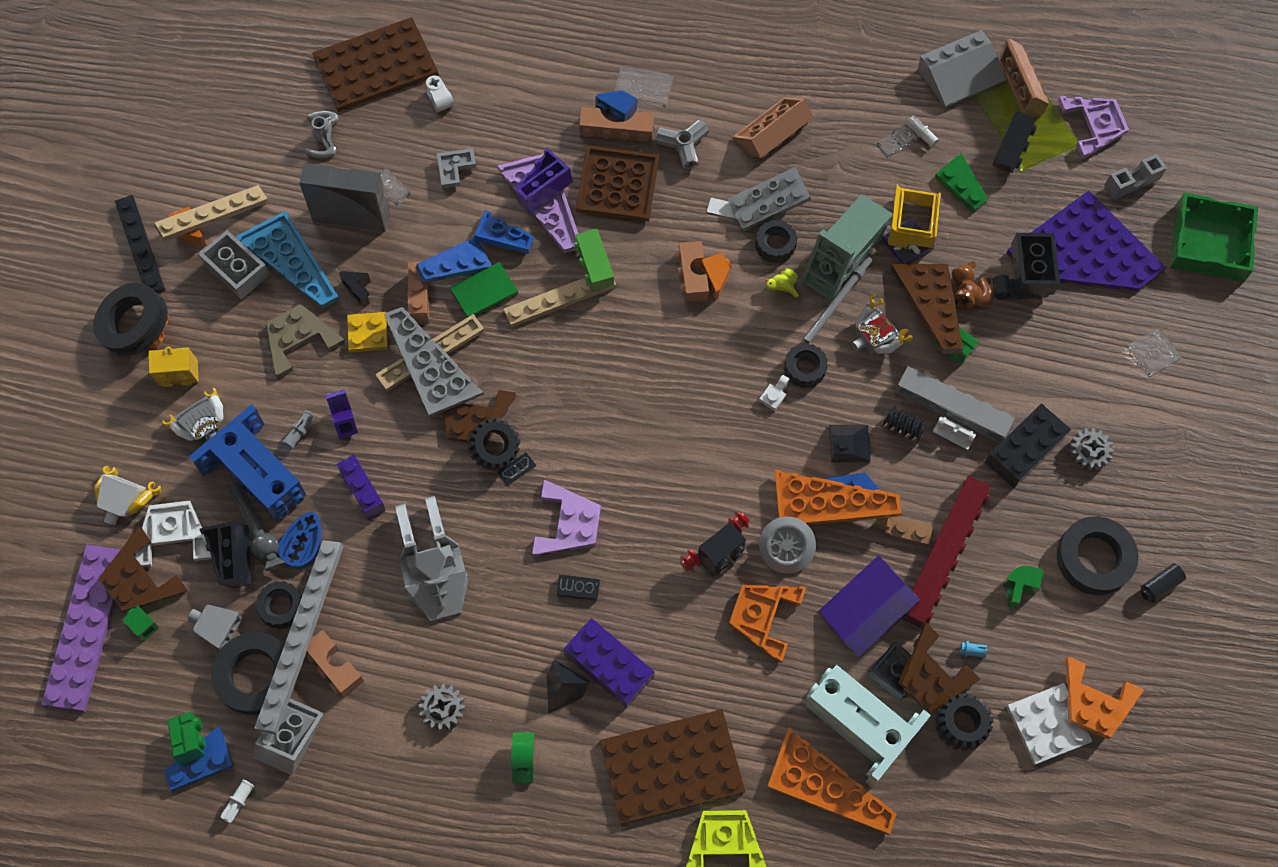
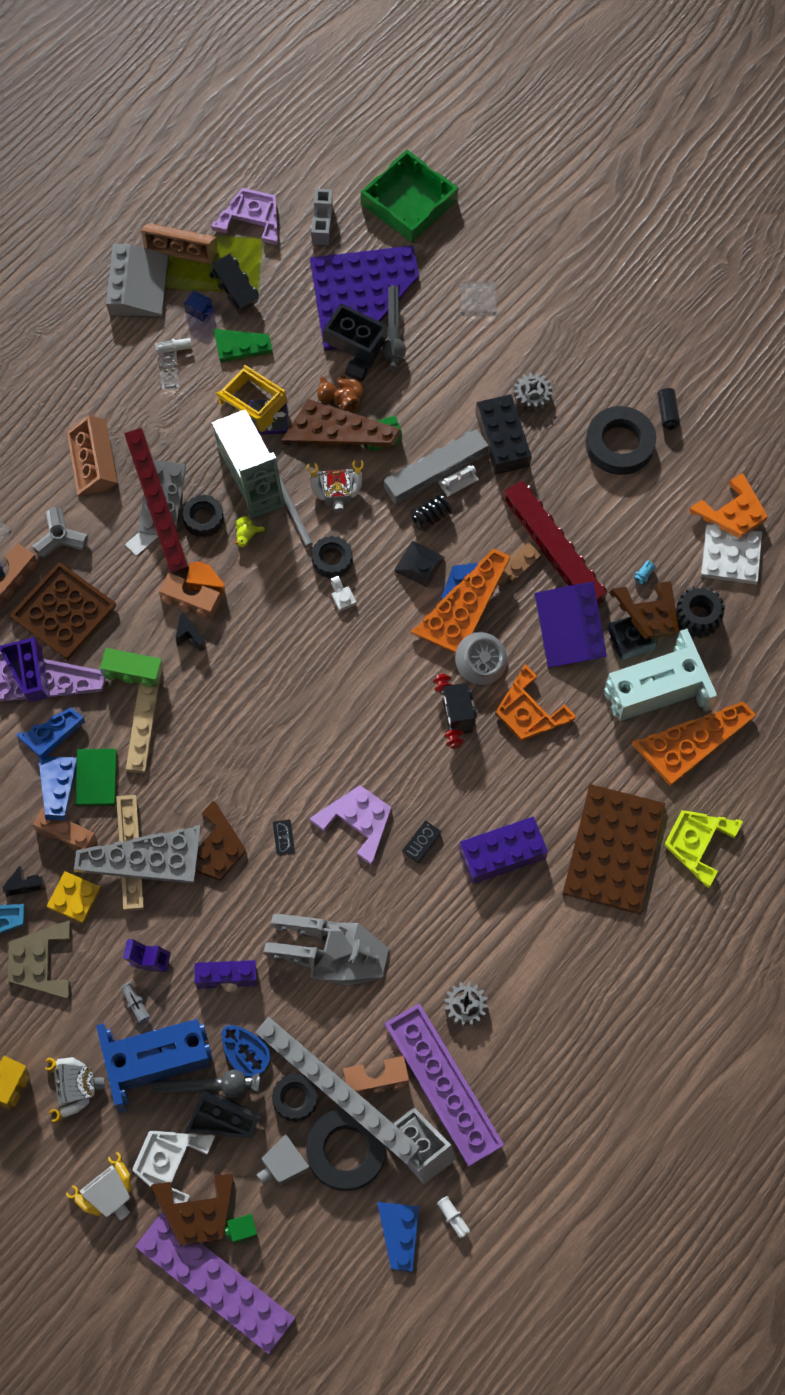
camera: 60 degrees left, 0 degrees up
(186, 738) = (374, 1233): green brick -> none
(355, 728) = (444, 1085): none -> medium lavender plate
(508, 435) = (245, 850): black tyre -> none
(522, 757) = (545, 957): green brick -> none
(564, 686) = (501, 897): black slope -> none
(657, 286) = (188, 632): none -> black slope
(758, 193) = (157, 501): none -> dark red brick
(974, 128) = (198, 306): none -> clear blue brick
(1022, 579) = (610, 506): green brick -> none
(1047, 306) = (393, 348): none -> dark grey piece

